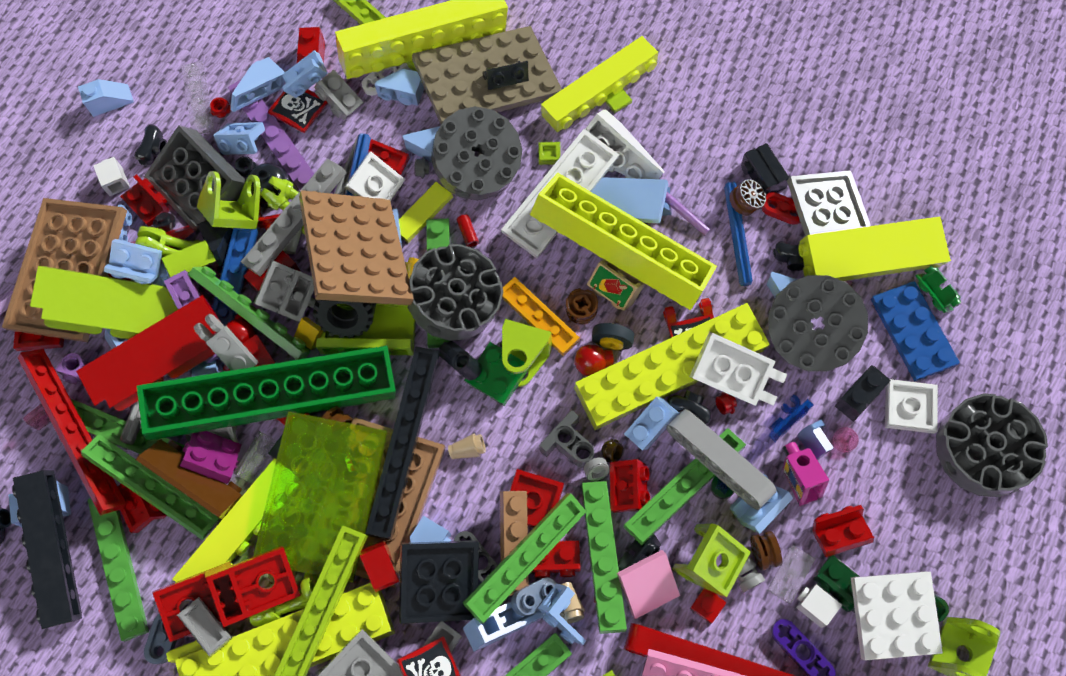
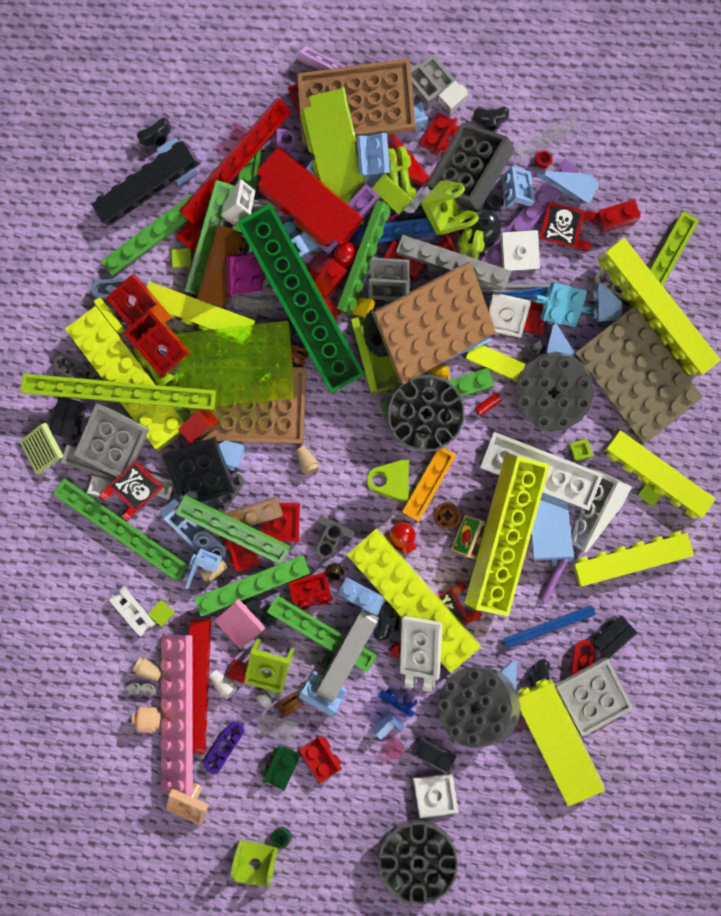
camera: 75 degrees right, 15 degrees up
(82, 188) = (430, 80): none -> light grey plate
(104, 96) = (525, 60): light blue slope -> none
(122, 434) = (238, 203): none -> white slope
(162, 534) = (181, 258): none -> lime tile
(165, 221) = (425, 157): black plate -> none
(204, 626) = (121, 318): light grey tile -> none
(225, 344) = (326, 253): light grey hinge -> none
(304, 74) = (588, 221): light blue bracket -> none
(307, 151) = (520, 250): none -> white plate
(338, 95) = (582, 255): light grey bracket -> none
(384, 124) = (563, 304): none -> medium azure plate
(402, 444) = (295, 412): black plate -> none
(460, 360) = (372, 434): black piece -> none
(495, 379) = (368, 458): green plate -> none
(506, 75) = (642, 399): black hinge -> none
(596, 469) = (316, 563): light grey tile -> none
(613, 336) = (425, 547): black wheel -> none
(685, 133) = (633, 559): none -> neon yellow brick
(720, 631) = (222, 684): none -> white cone
(746, 199) = (581, 626): reddish brown wheel -> none
(804, 474) = (348, 725): dark pink torso -> none
(818, 605) = (259, 751): white brick -> none
(896, 615) = (265, 809): white plate -> none
(914, 331) = (502, 787): blue plate -> none
(942, 298) = (548, 794): green hinge -> none

